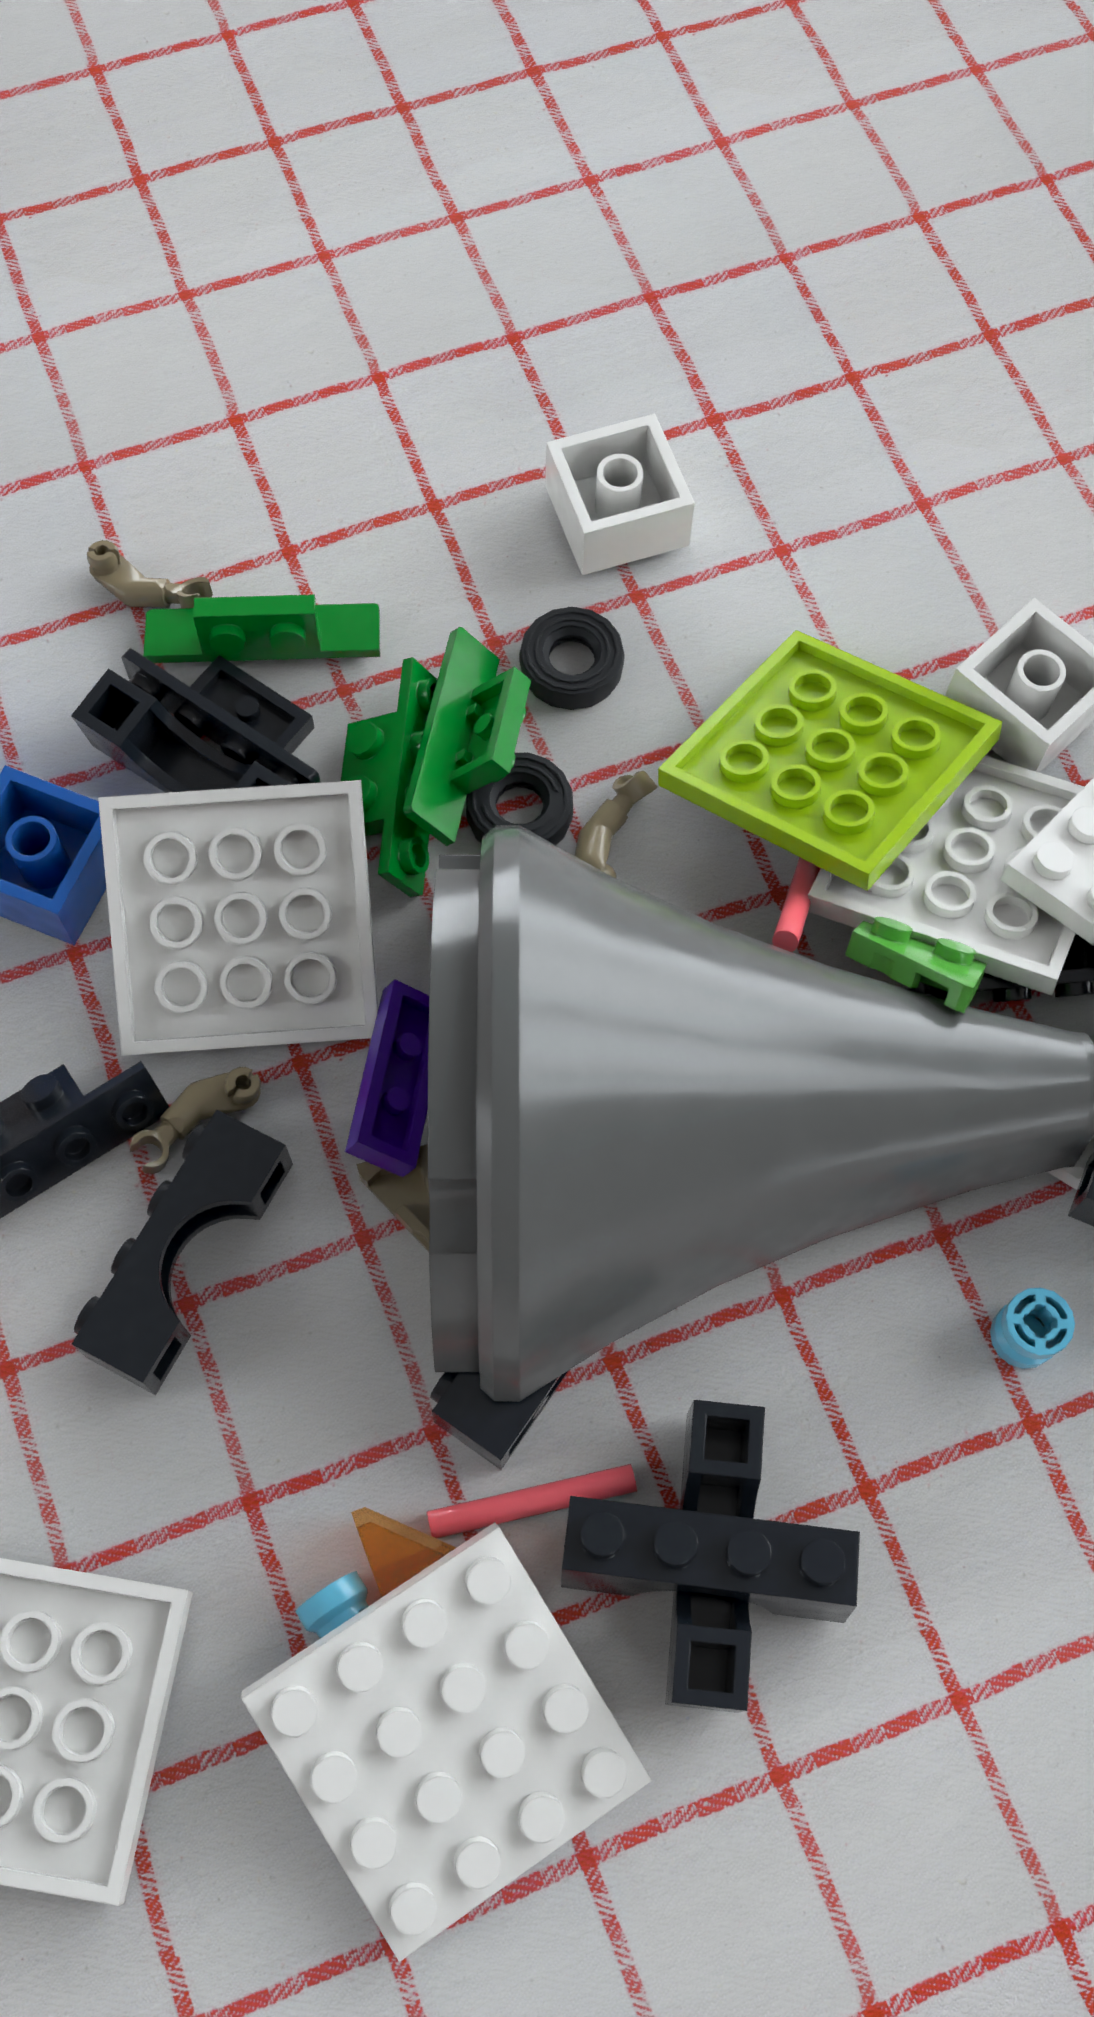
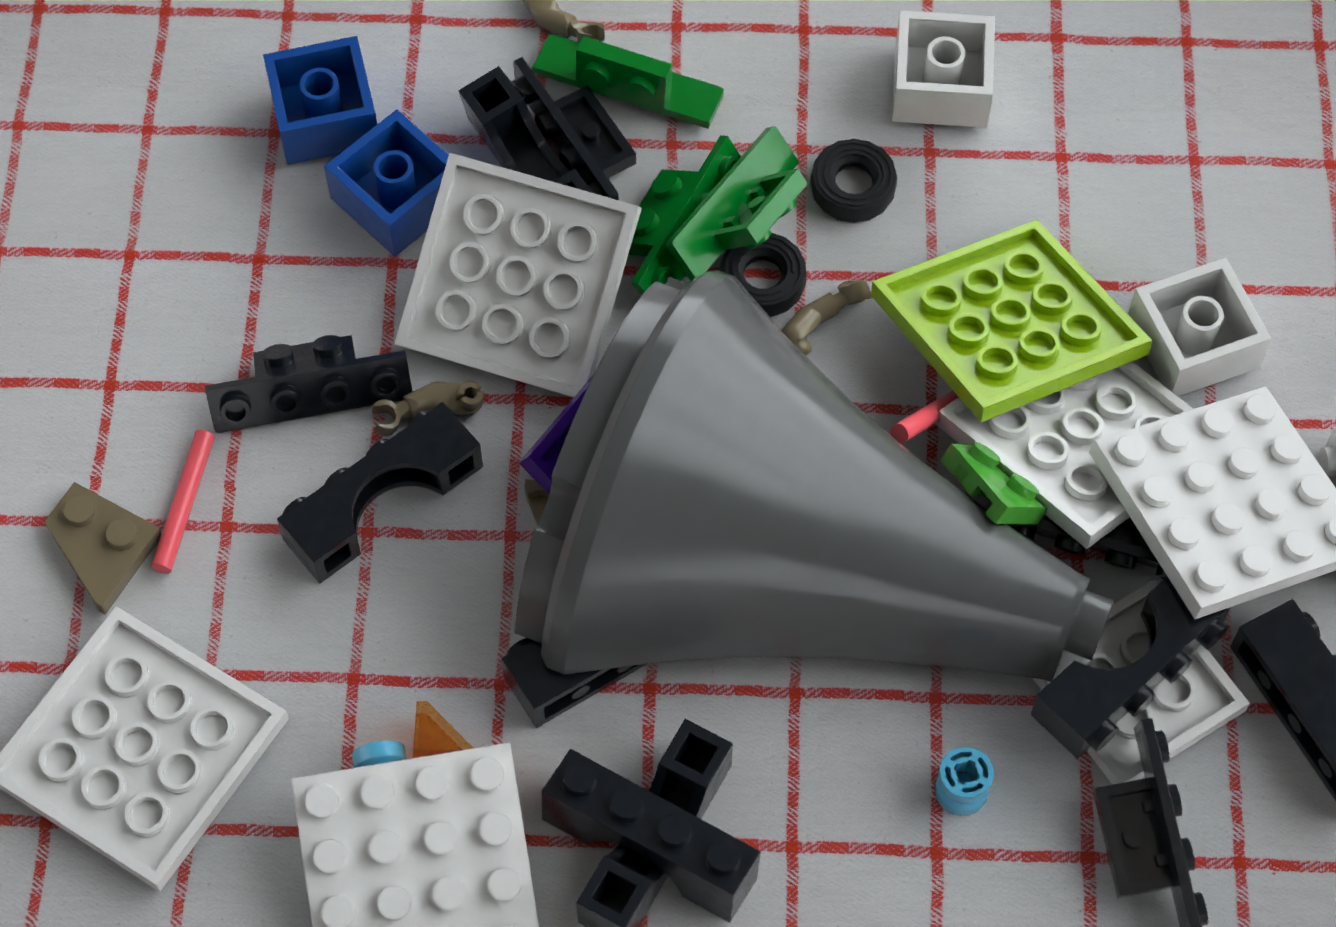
camera: 25 degrees right, 5 degrees down
(530, 1501) = (545, 753): coral bar -> none

